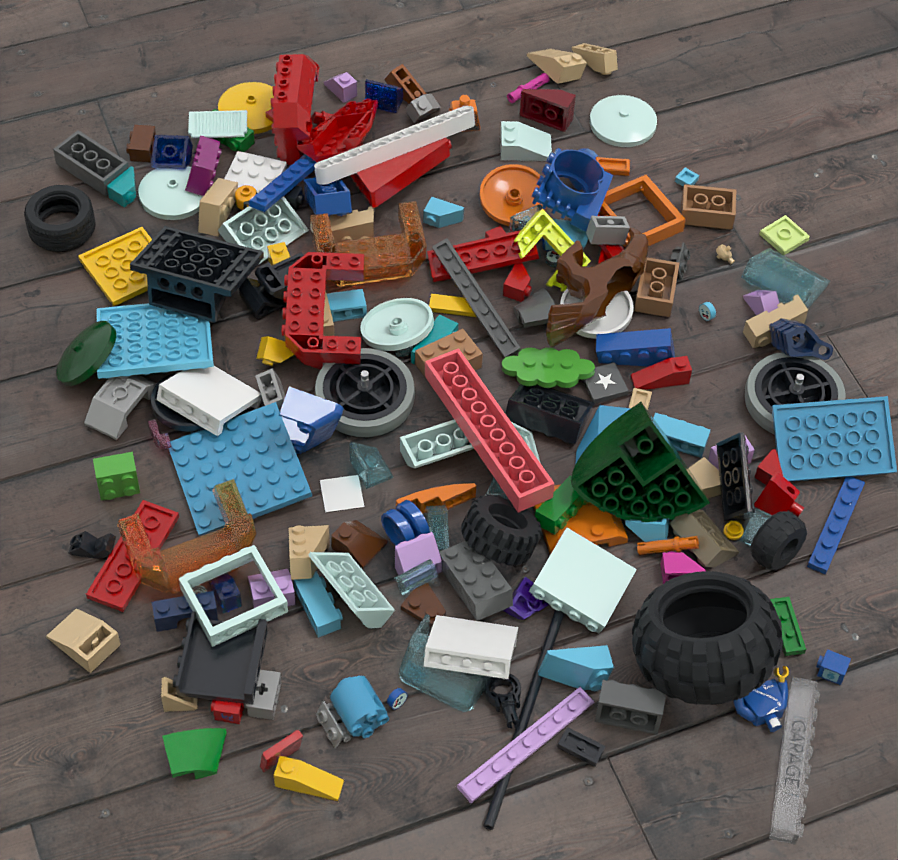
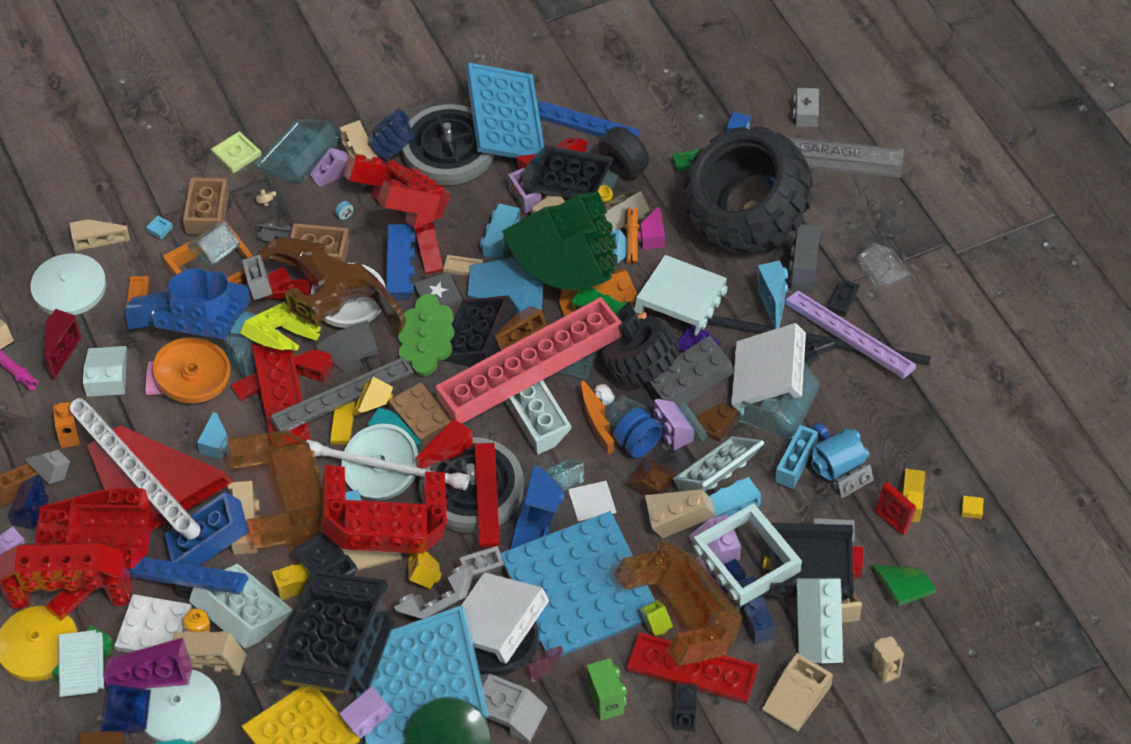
camera: 90 degrees left, 0 degrees up
(100, 717) = (887, 659): none -> tan brick
(130, 301) = (366, 712): none -> lavender brick
(149, 659) = (820, 619): none -> light aqua slope
(188, 524) = (656, 618): none -> lime brick
(233, 351) = (460, 582): none -> light grey slope
(284, 841) = (972, 507): none -> yellow tile
(354, 394) = (487, 495): none -> red tile
(355, 662) = (796, 457): none -> medium azure brick
(404, 367) = (445, 445): none -> red slope
(417, 278) = (457, 480): none -> white hose
(458, 502) = (604, 393): none -> white plate
(470, 319) = (373, 395): none -> yellow slope
(525, 515) = (631, 322): none -> black slope
(547, 438) = (520, 326): none -> dark orange slope
(626, 795) = (883, 265): none -> clear slope
(656, 207) = (215, 243): none -> clear light blue slope
(677, 130) = (96, 233): none -> tan slope
(710, 349) = (400, 188): none -> red wedge
(870, 743) = (807, 107): none -> light grey brick

